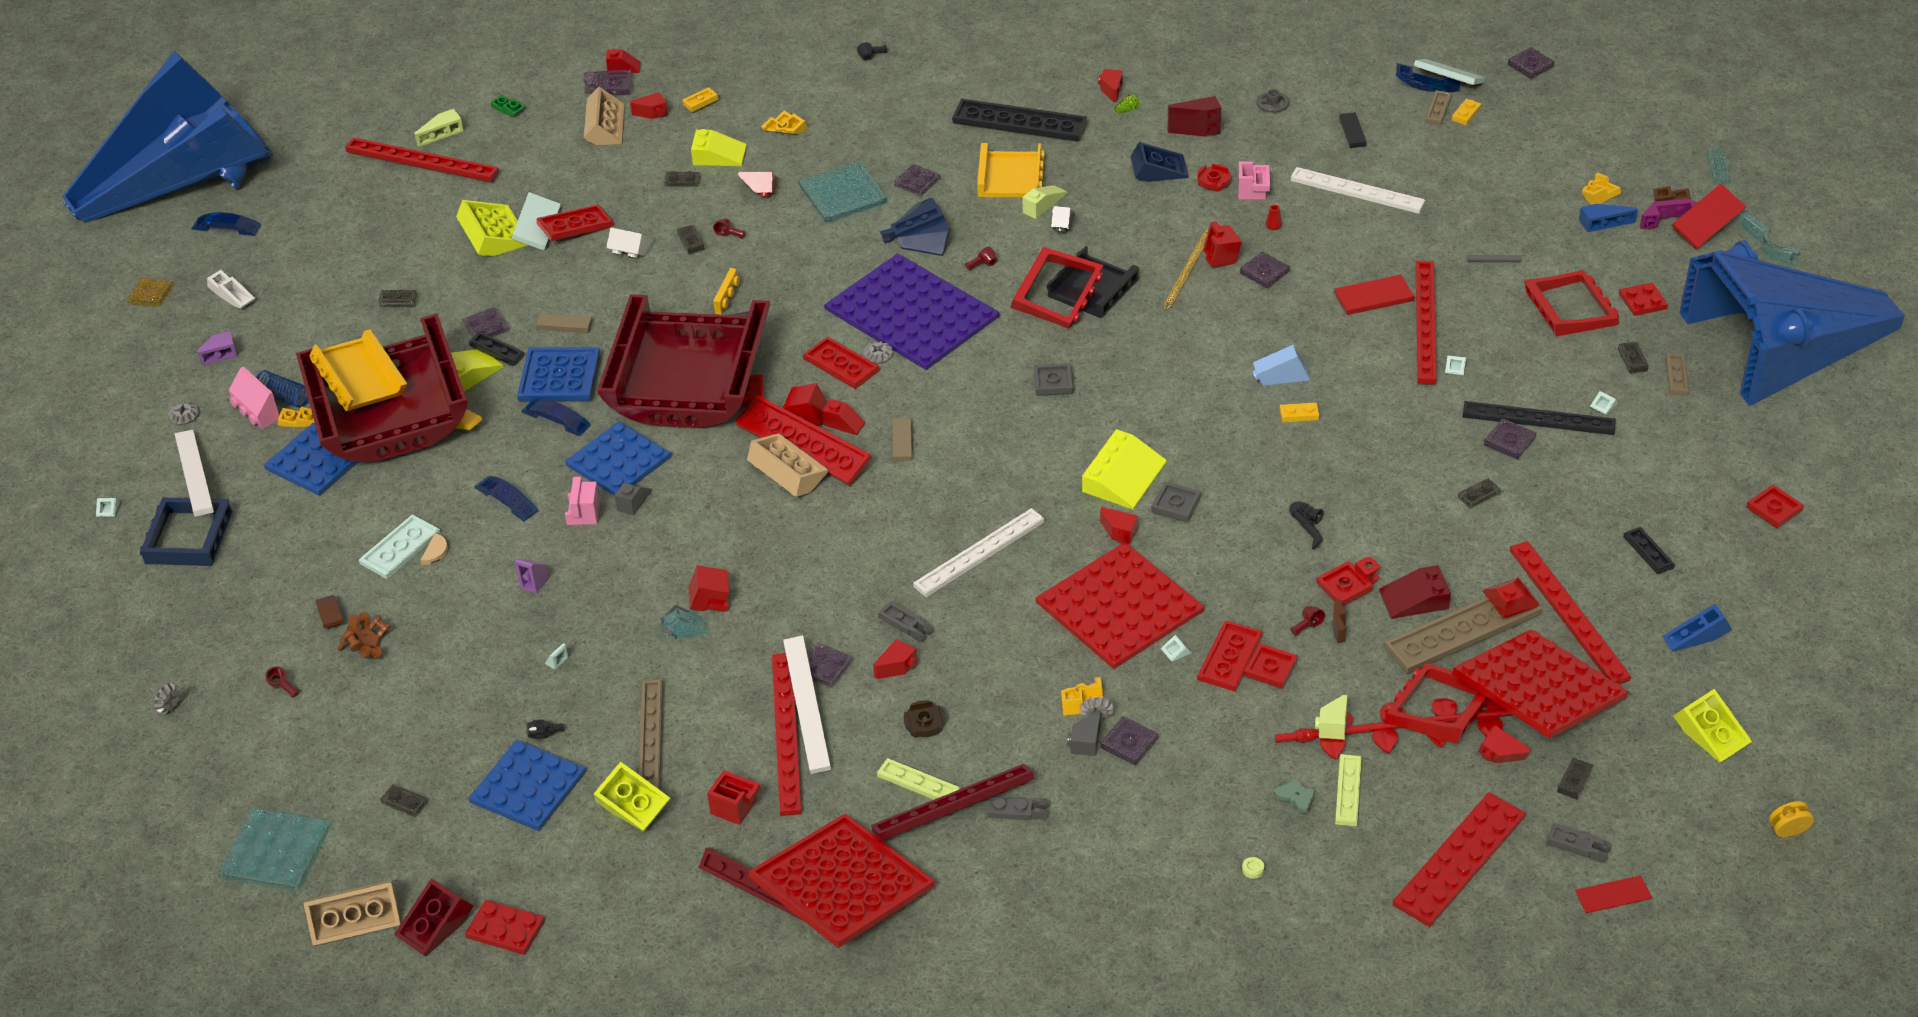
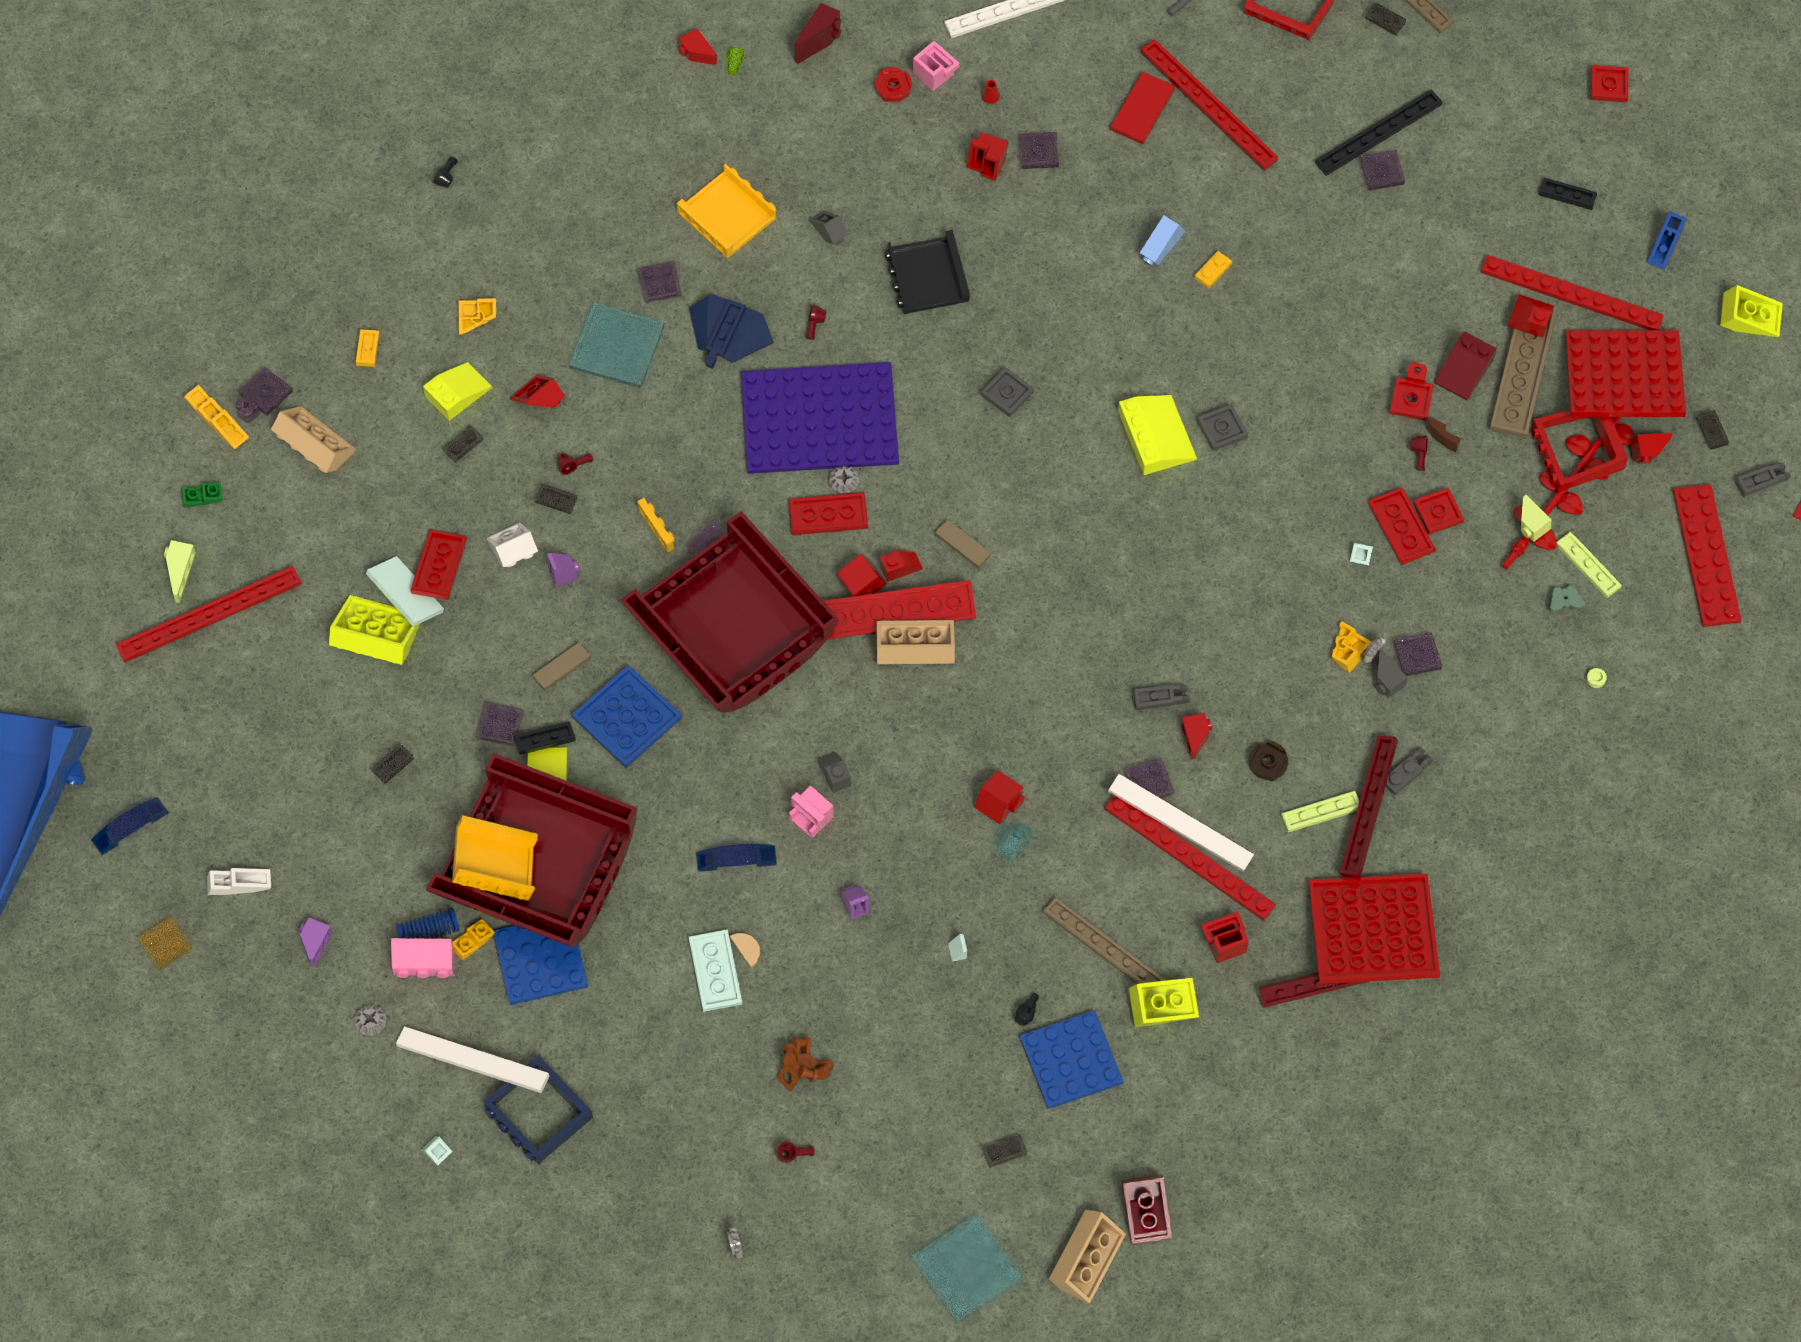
camera: 50 degrees left, 20 degrees up
(329, 611) = (742, 1067): reddish brown slope -> none
(505, 927) = (1196, 1168): red plate -> none
(558, 413) = (675, 753): clear blue slope -> none
(570, 76) = (216, 417): none -> yellow slope
(618, 458) = (775, 749): blue plate -> none
(621, 60) = (243, 365): red slope -> none
(635, 269) = (562, 568): none -> medium lavender slope
(649, 106) = (337, 391): red slope -> none
(978, 552) = (1137, 593): white tile -> none
(1020, 119) = (666, 148): black plate -> none
(1041, 199) = (788, 219): yellowish green slope -> none
(1049, 255) = (885, 312): red windscreen -> none
(1119, 525) = (1209, 483): red slope -> none
(1119, 605) = (1283, 550): red plate -> none
(1157, 164) = (836, 107): dark blue slope -> none
(1189, 271) = (977, 194): yellow piece -> none
(1305, 515) = (1319, 361): black piece -> none
(1455, 365) = (1272, 130): light aqua slope -> none
(1479, 493) = (1411, 238): clear smoke plate -> none
(1603, 403) = (1408, 81): light aqua slope -> none

